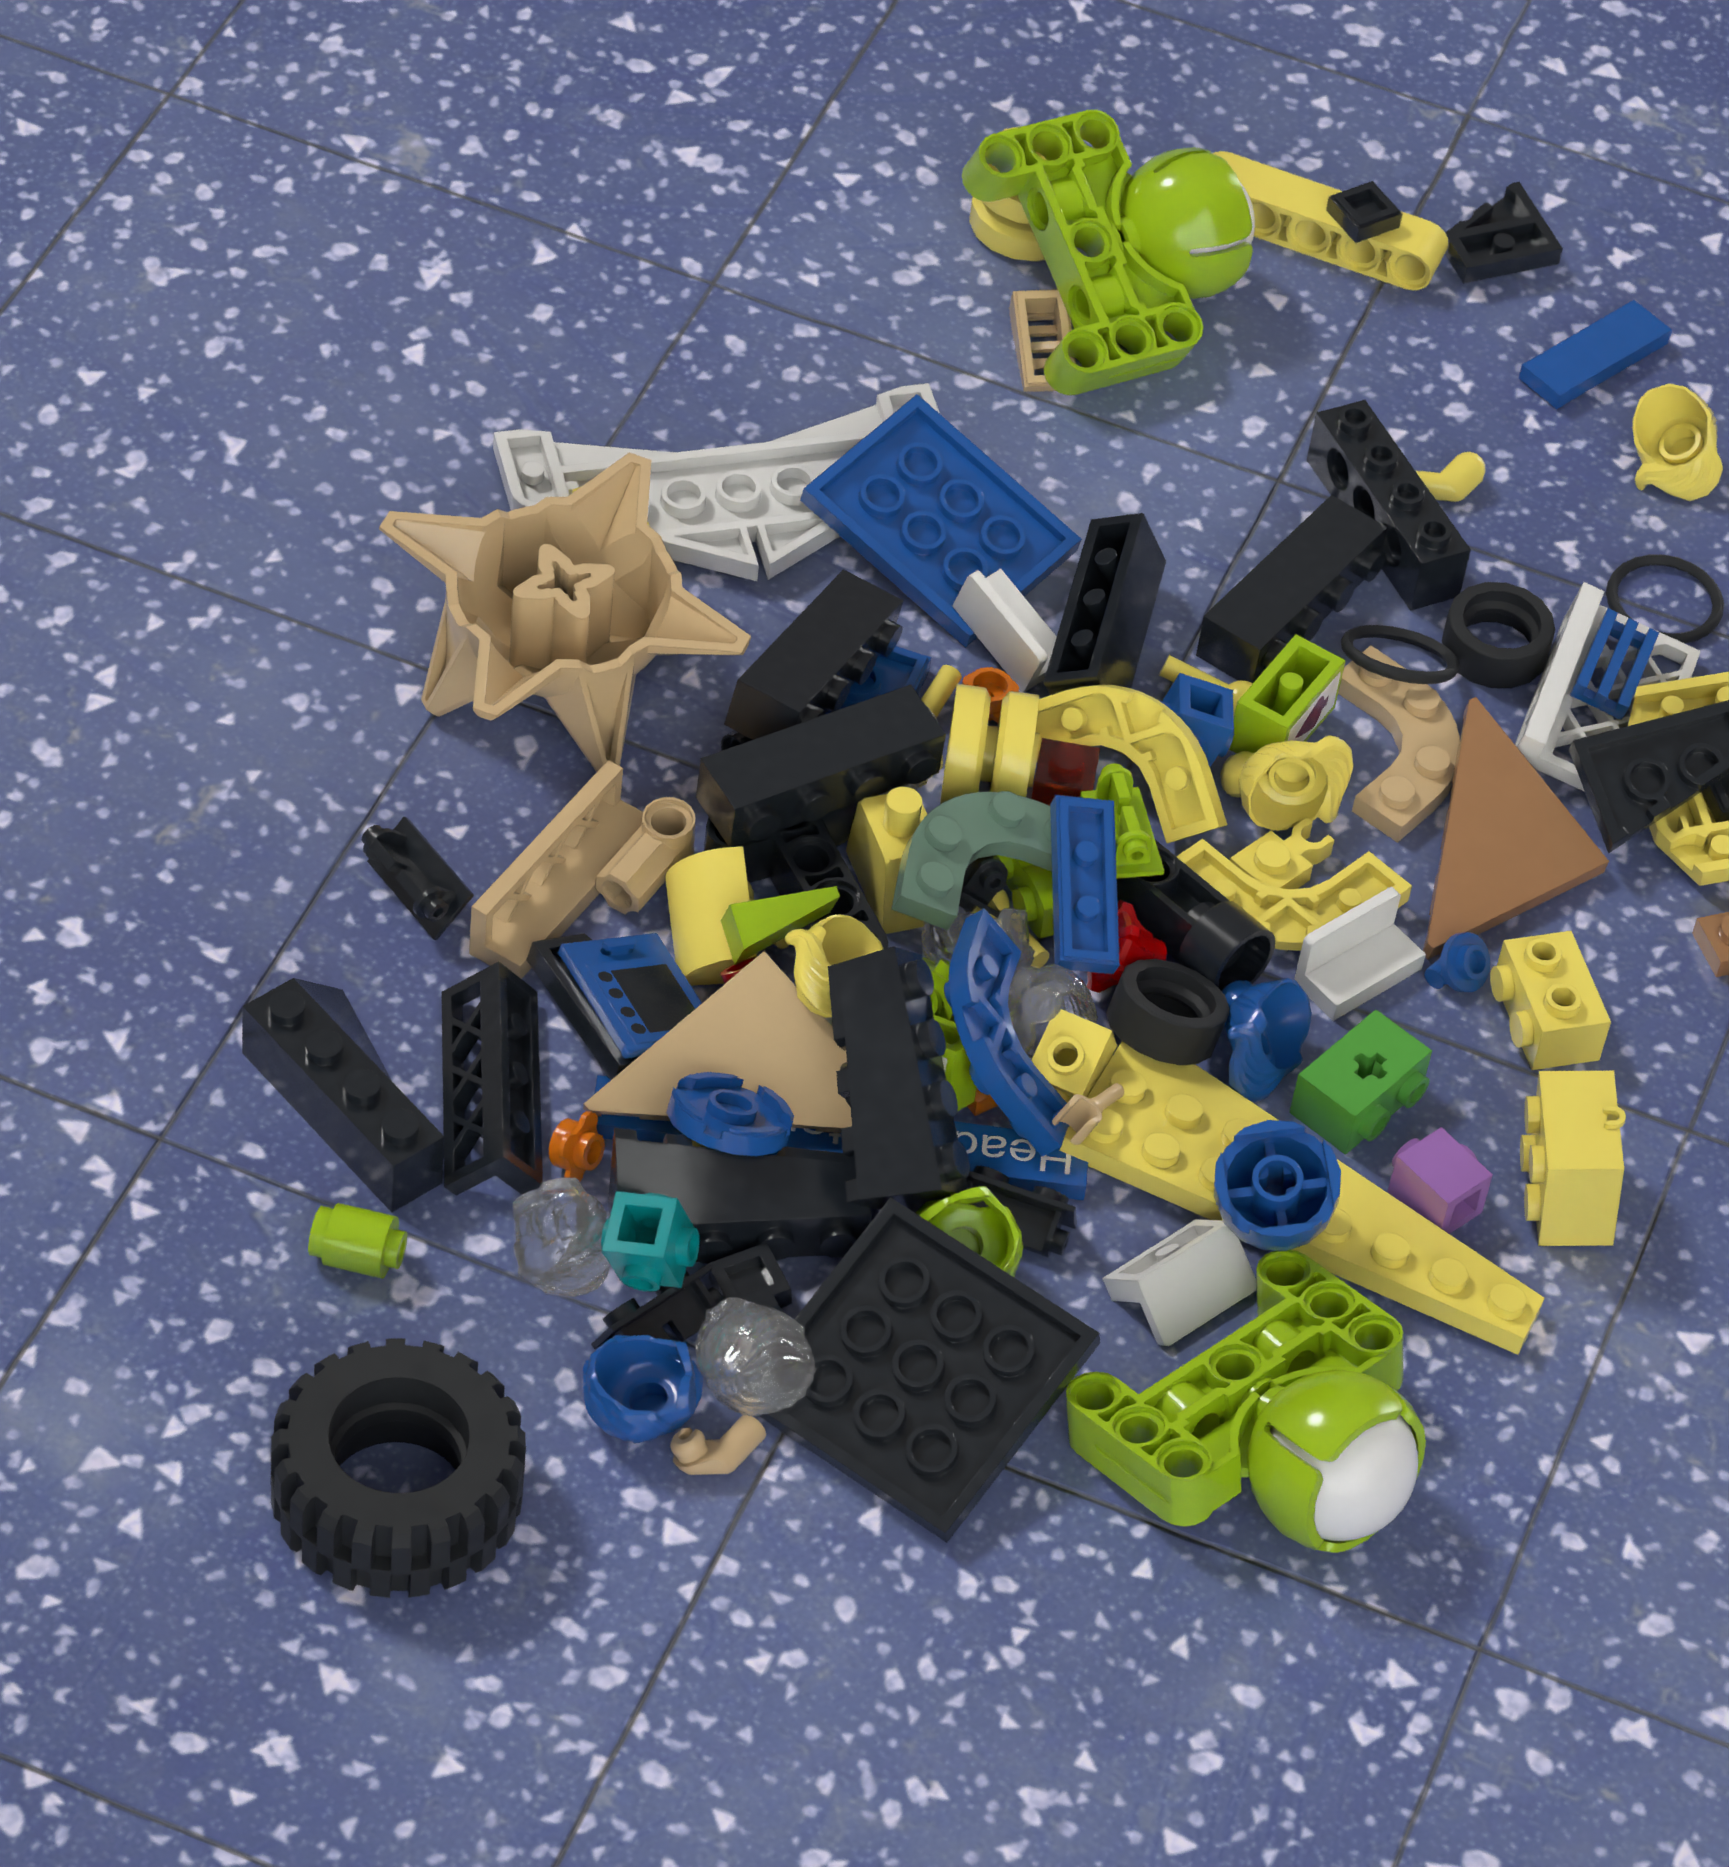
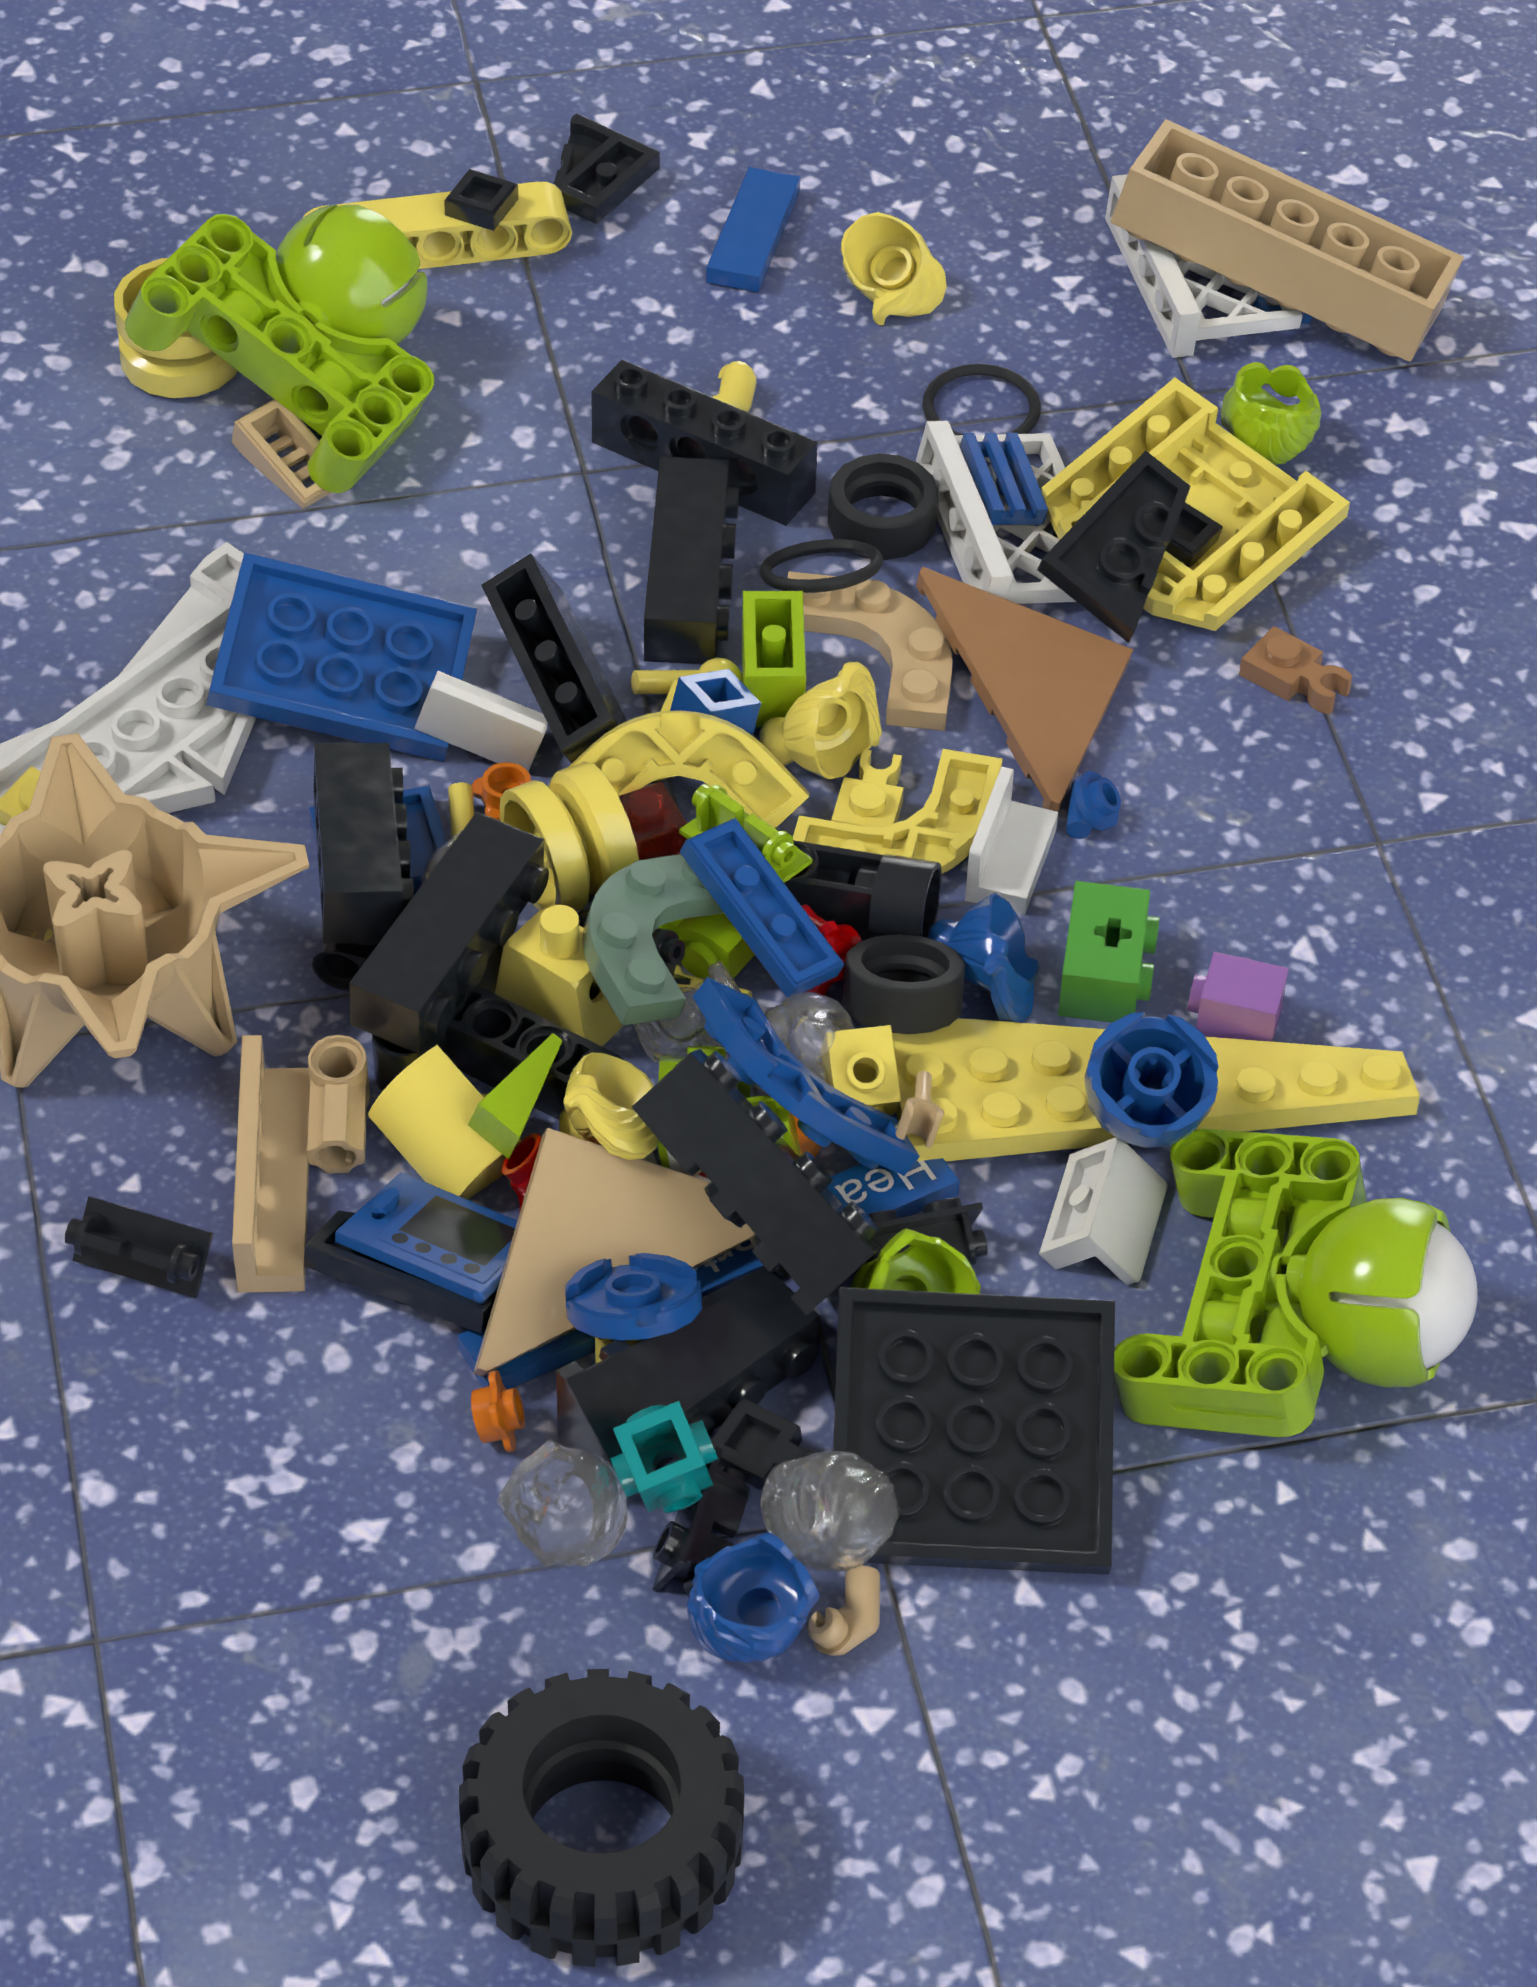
camera: 30 degrees left, 0 degrees up
(329, 1072) = (246, 1493): black wedge -> none
(357, 1240) = (373, 1623): lime brick -> none
(506, 1073) = (387, 1389): black fence -> none
(1550, 1000) = (1192, 793): light yellow brick -> none
(1573, 1158) = (1341, 915): light yellow brick -> none

